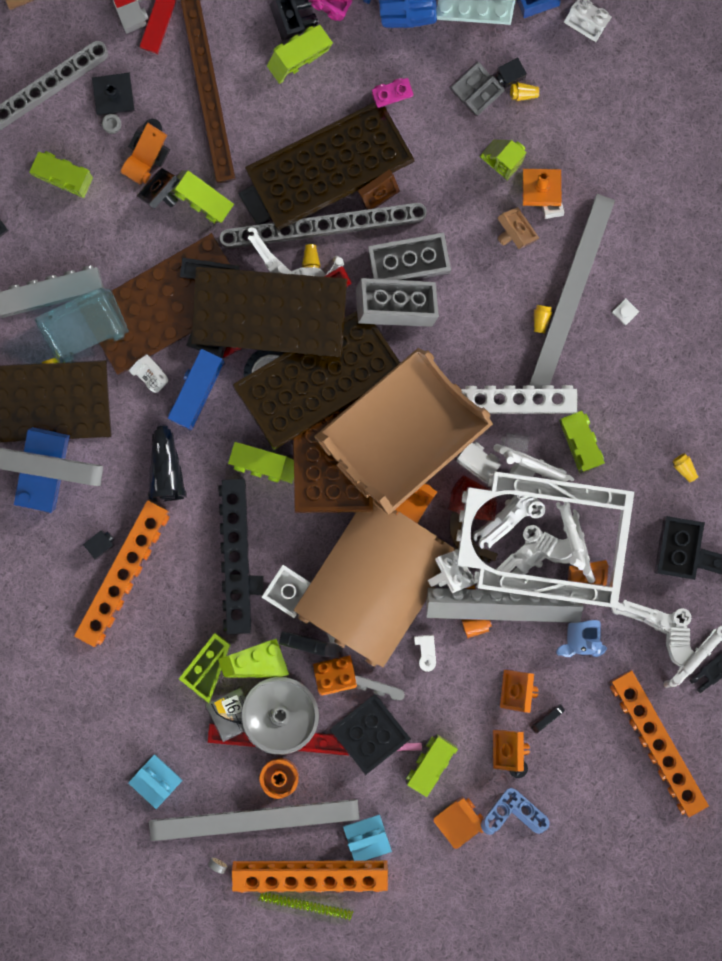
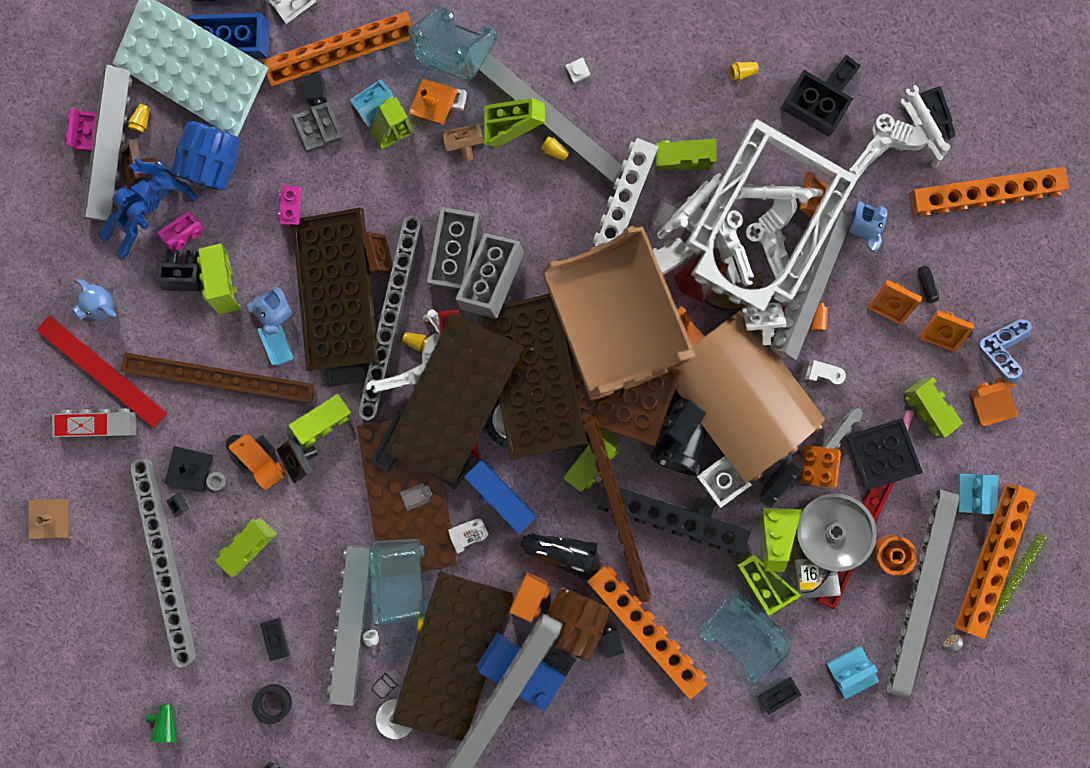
camera: 80 degrees left, 0 degrees up
(20, 321) = (370, 638): none -> white hinge
(66, 499) = (559, 660): none -> black plate
(76, 97) = (178, 504): none -> black plate
(105, 506) = (581, 623): none -> reddish brown wheel
(108, 720) = (779, 695): none -> black plate
(113, 451) = (528, 598): none -> orange brick
(154, 668) = (748, 635): none -> clear light blue windscreen
(167, 312) = (416, 496): none -> clear brick
(229, 497) = (615, 502): none -> reddish brown plate
(258, 129) = (276, 346): none -> medium azure panel
(288, 112) = (271, 310): none -> medium blue piece
(304, 540) = (678, 456): none -> black piece
(327, 528) = (682, 421): none -> black brick
(520, 129) = (369, 101): none -> medium azure bracket
(523, 91) = (336, 85): yellow cone -> none
(550, 266) = (511, 119): none -> lime wedge
(558, 81) = (338, 48): none -> orange brick
(600, 183) = (449, 47): none -> clear light blue windscreen

